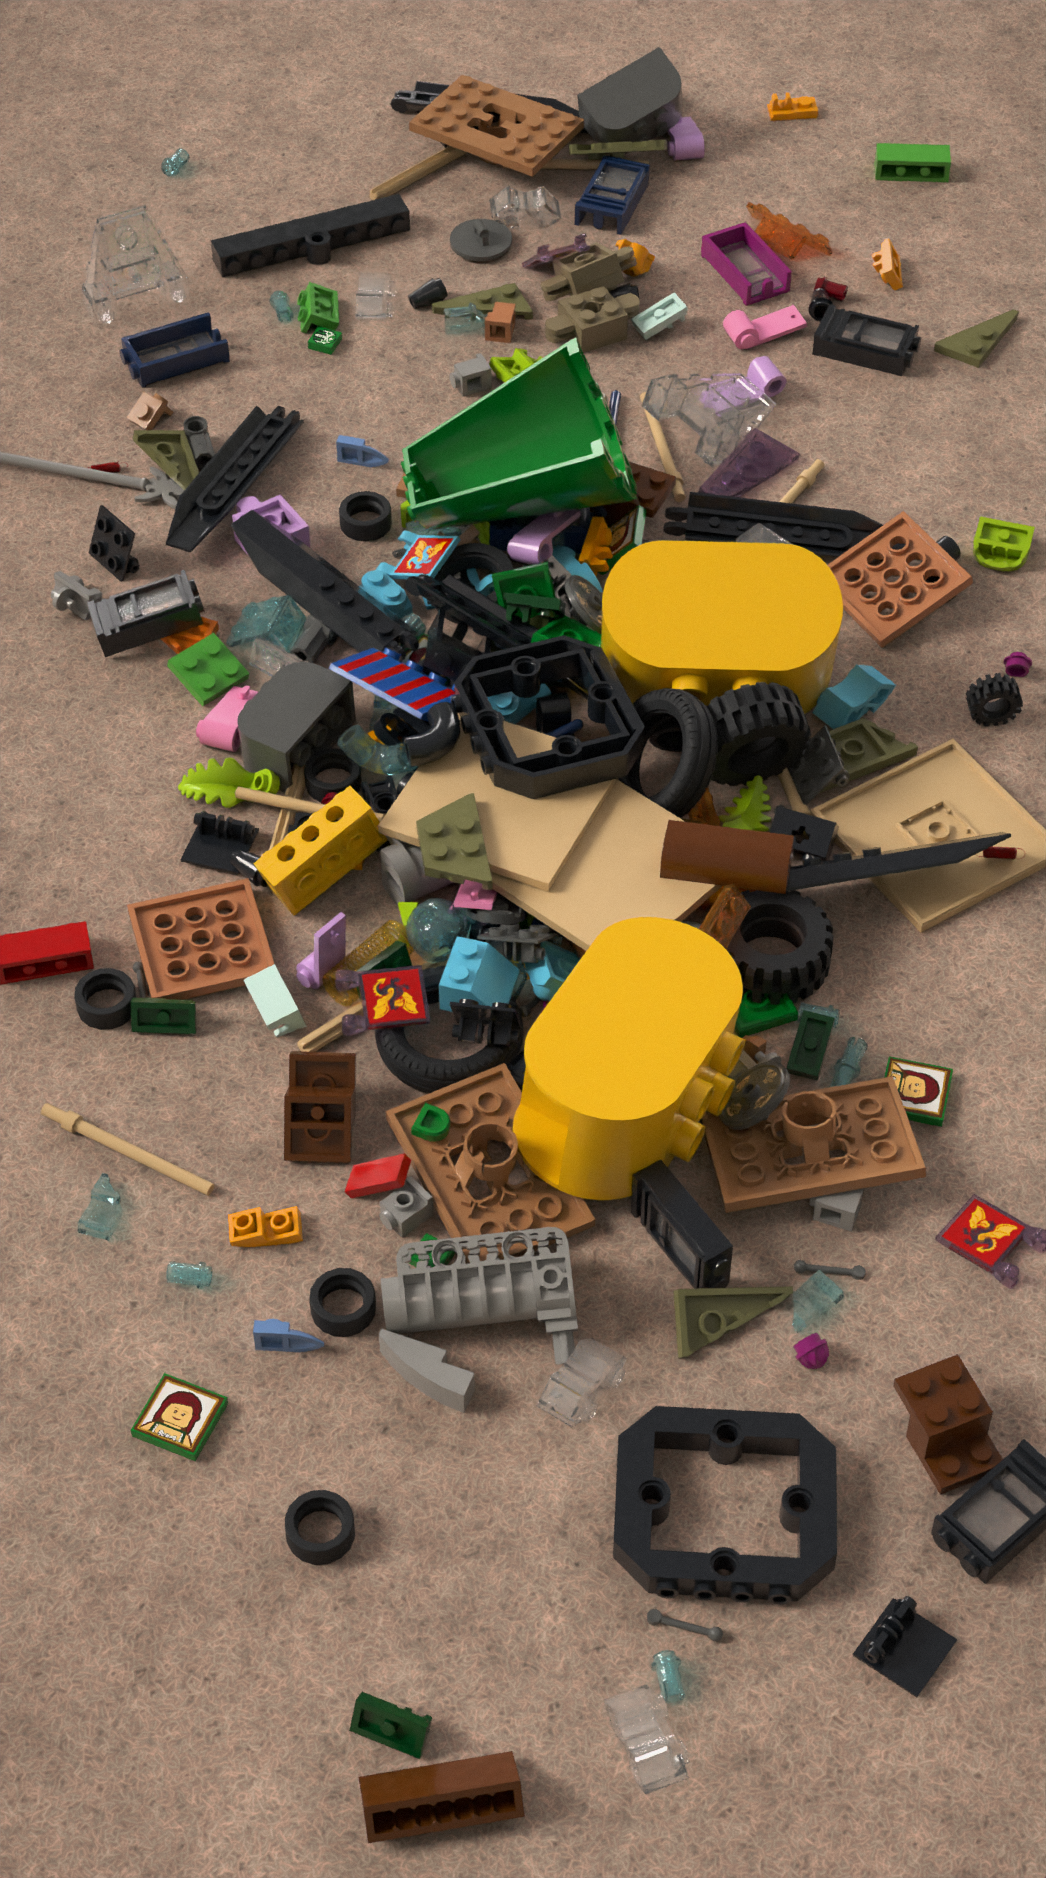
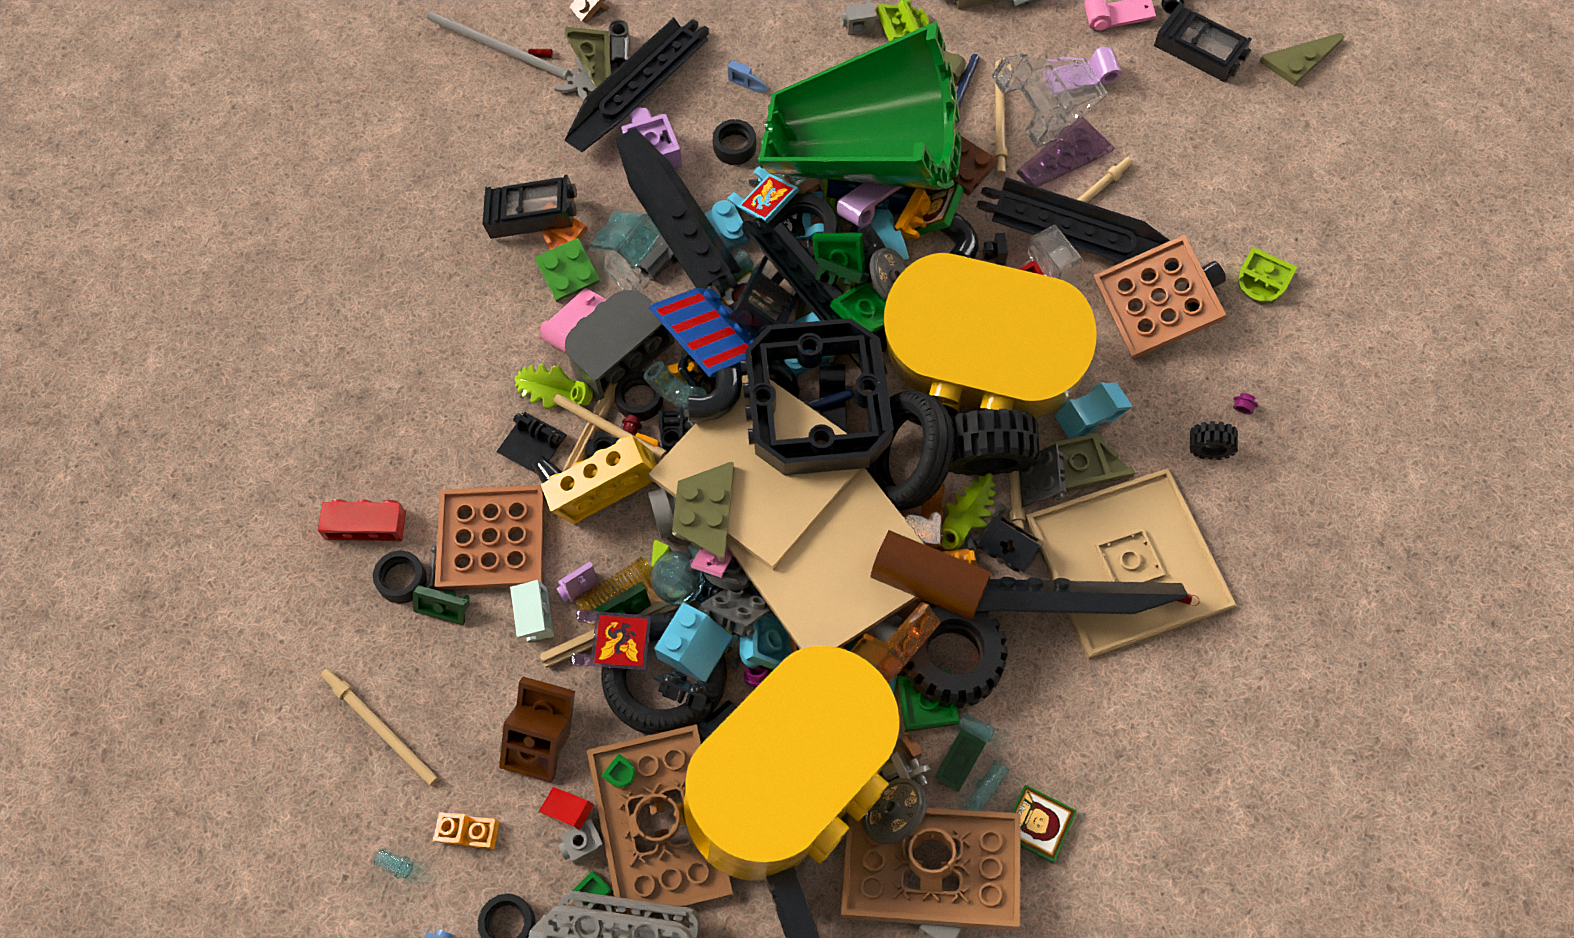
camera: 15 degrees right, 15 degrees up
(72, 595) = (477, 174): light grey hips -> none
(103, 1211) = (343, 783): clear light blue slope -> none
(113, 544) = (522, 134): black hinge -> none

